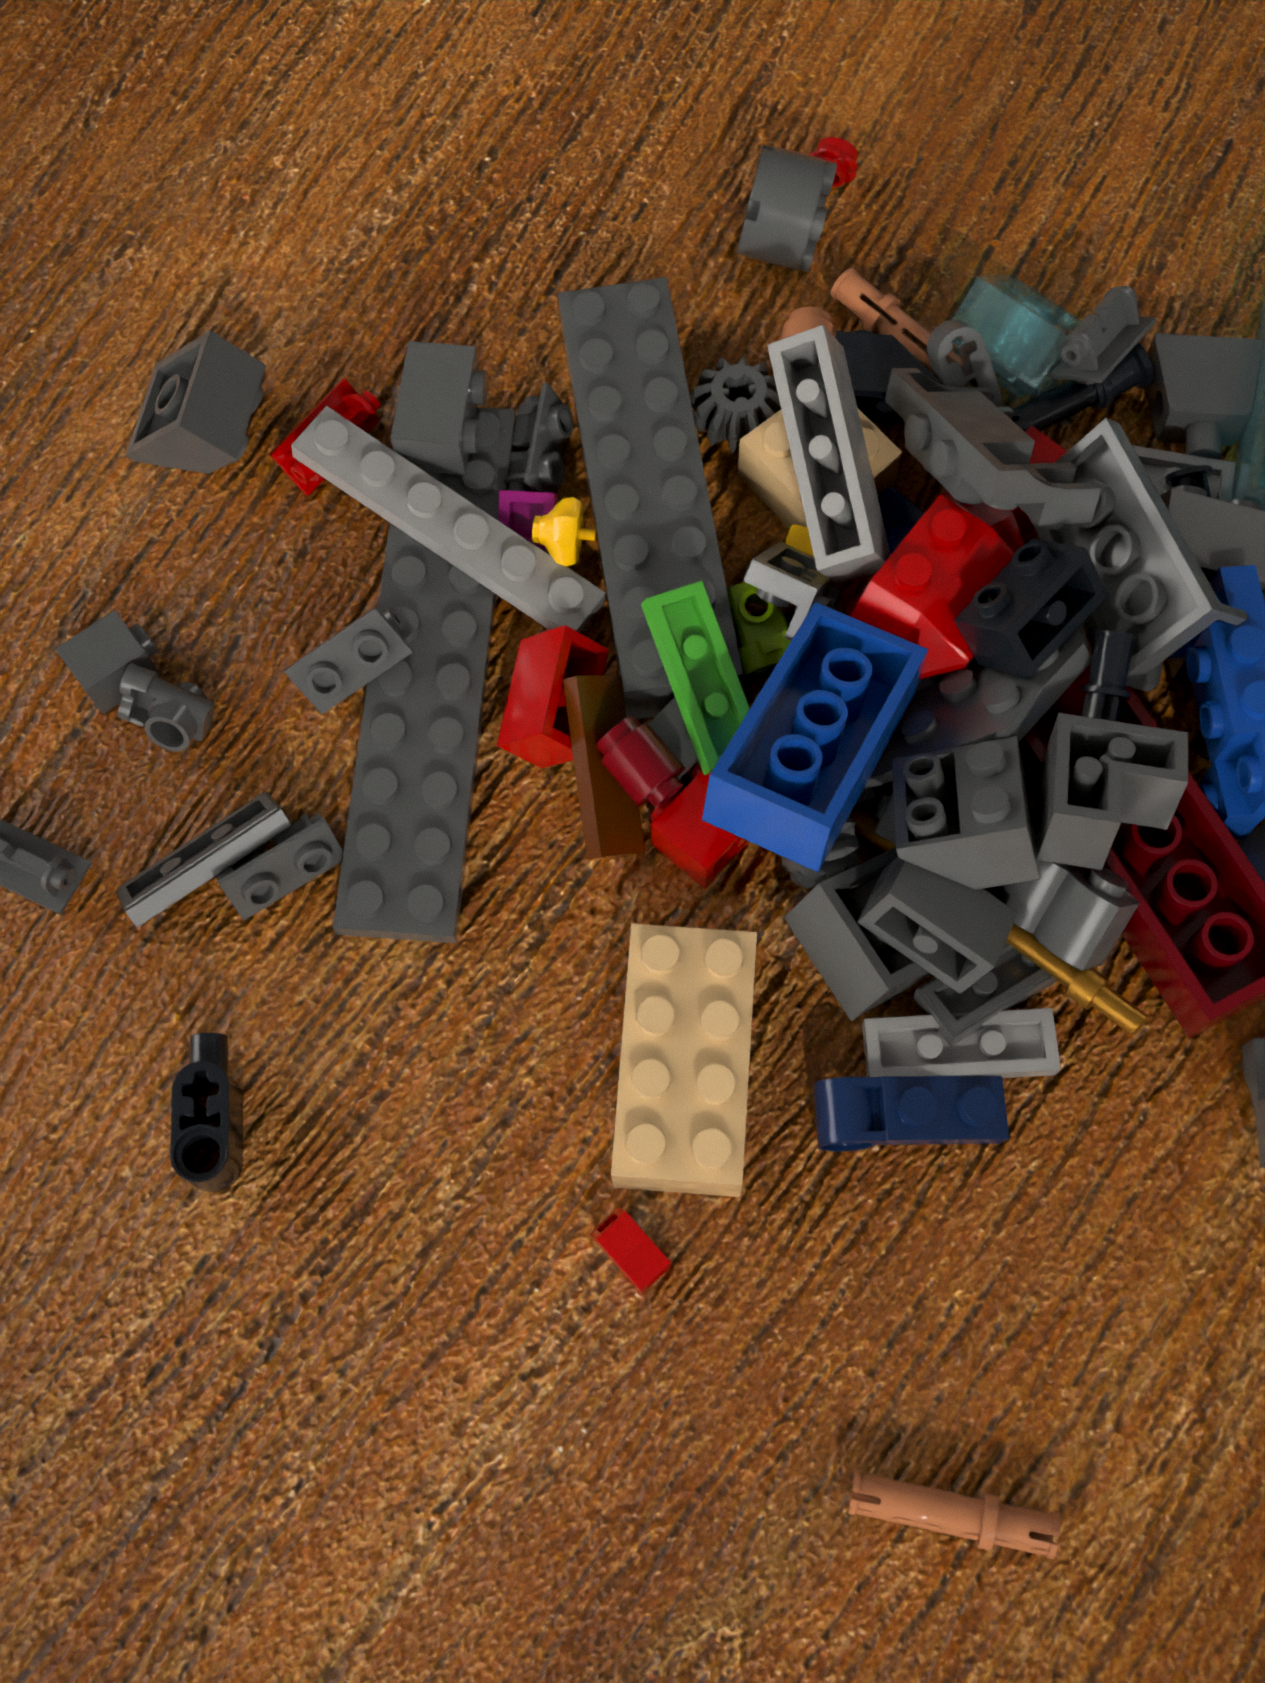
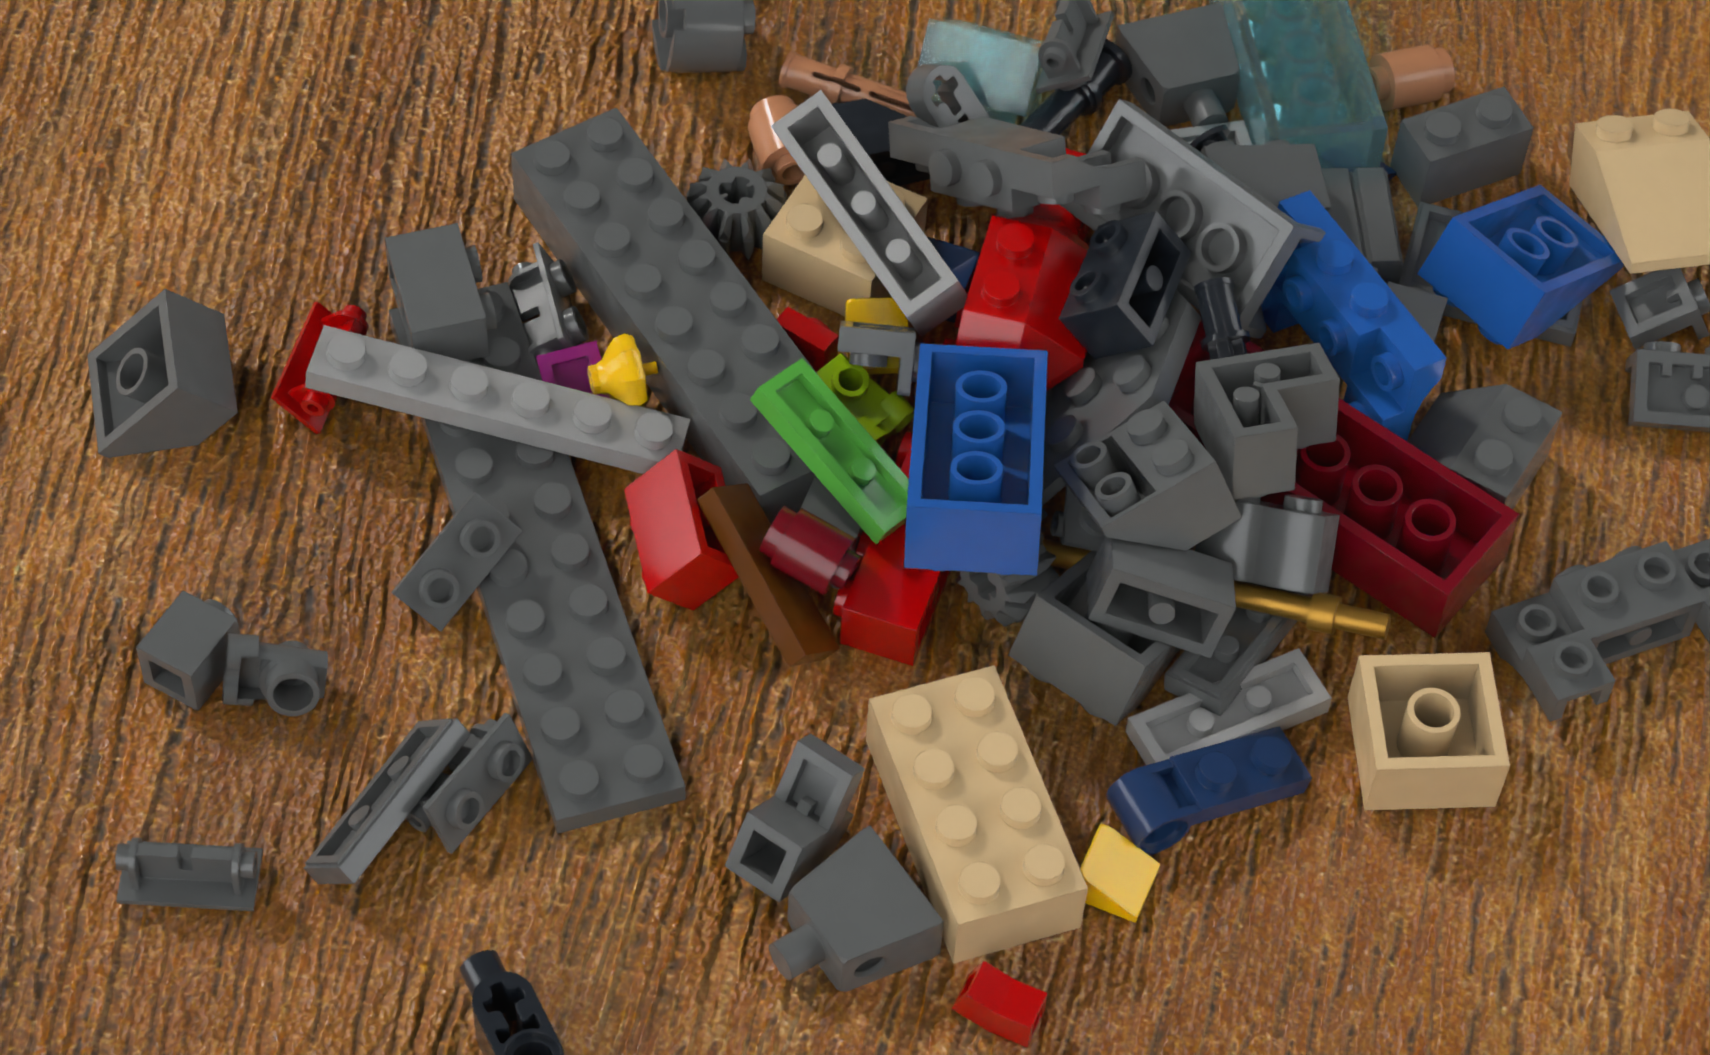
camera: 30 degrees left, 15 degrees down
(524, 1015) = (798, 824): none -> dark grey brick
(538, 1119) = (857, 918): none -> dark grey torso
(737, 547) = (810, 336): none -> red plate
(789, 1164) = (1117, 874): none -> yellow slope
(1135, 1141) = (1427, 731): none -> tan brick

